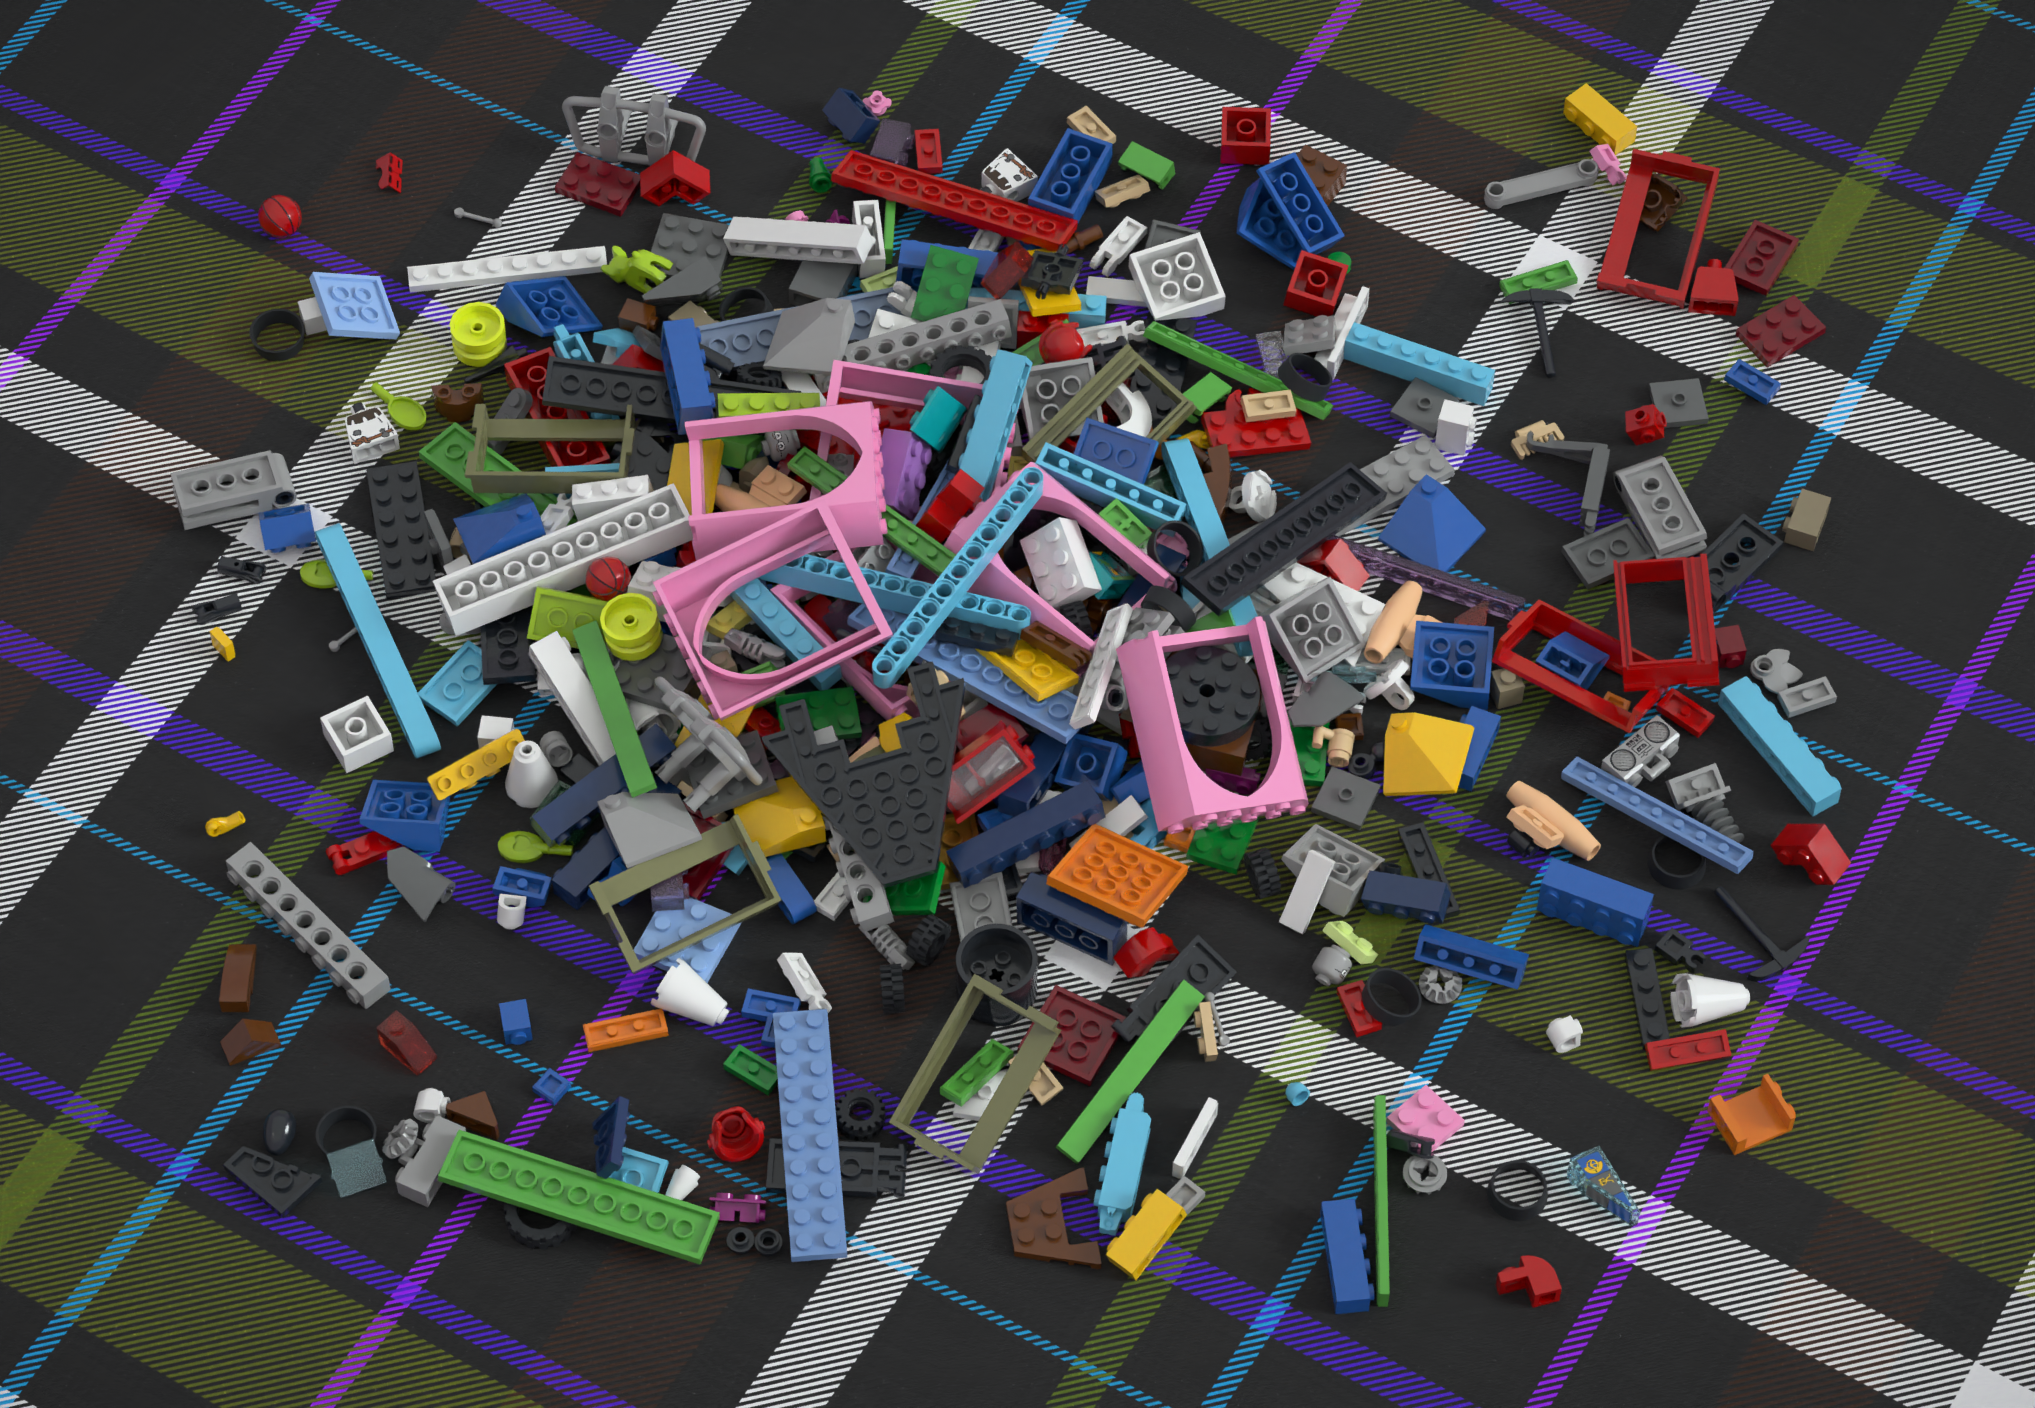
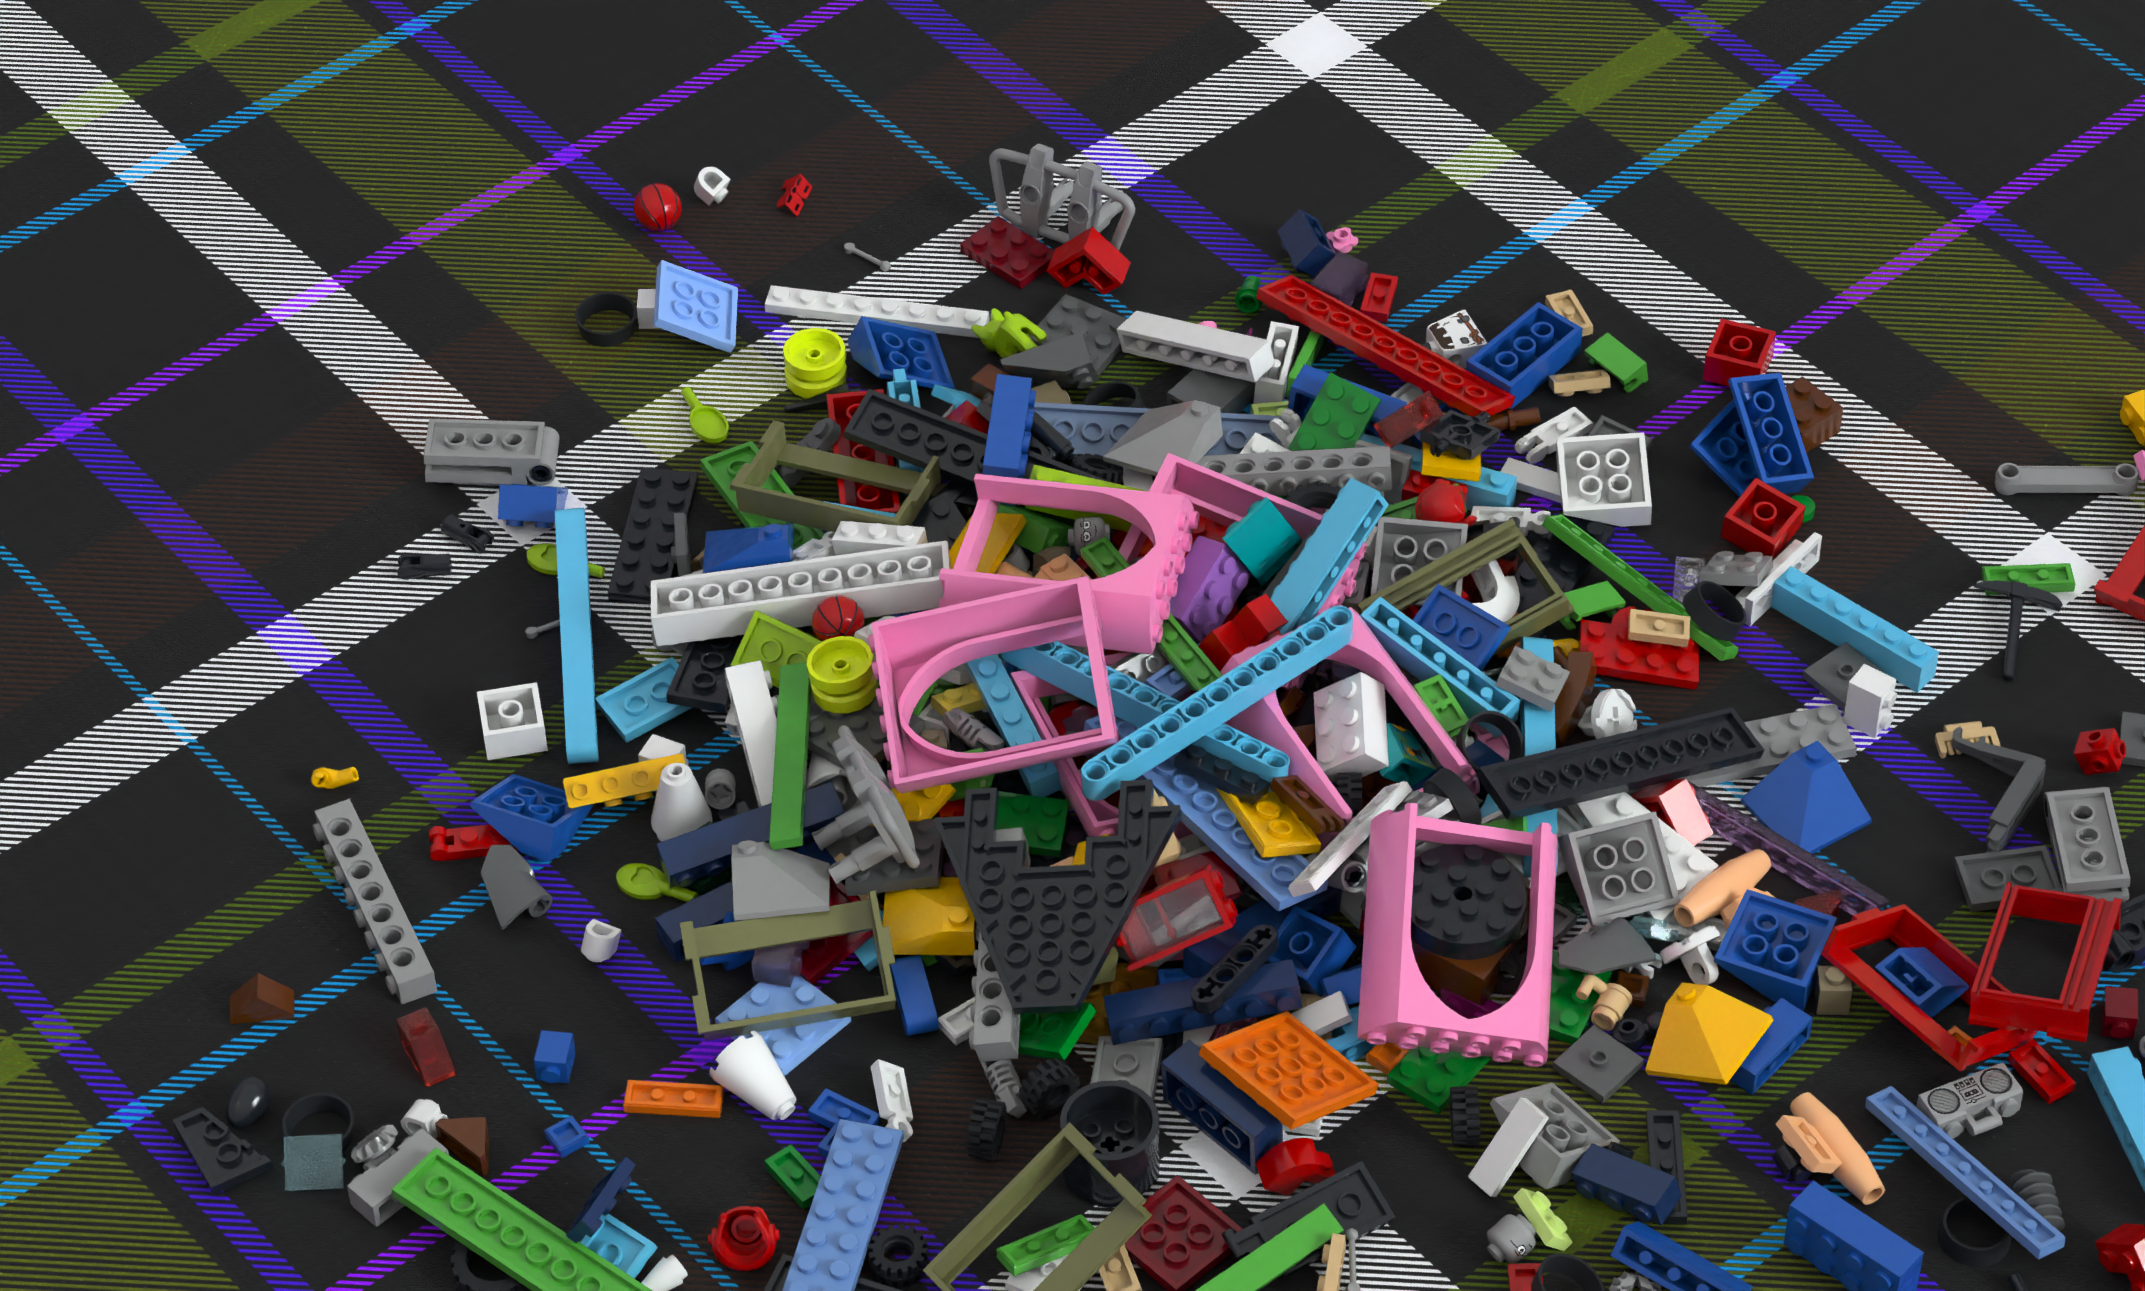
camera: 20 degrees right, 10 degrees down
(222, 643) = (413, 600): yellow tile -> none
(238, 978) = (276, 935): reddish brown slope -> none
(317, 183) = (711, 185): none -> white plate
(370, 433) = (658, 434): white torso -> none
(457, 404) = (757, 420): reddish brown cylinder -> none
(523, 883) = (631, 919): blue slope -> none
(1046, 801) = (1240, 971): none -> black beam
(1189, 481) = (1532, 678): none -> light grey plate
(1697, 787) = (2026, 1152): light grey bracket -> none

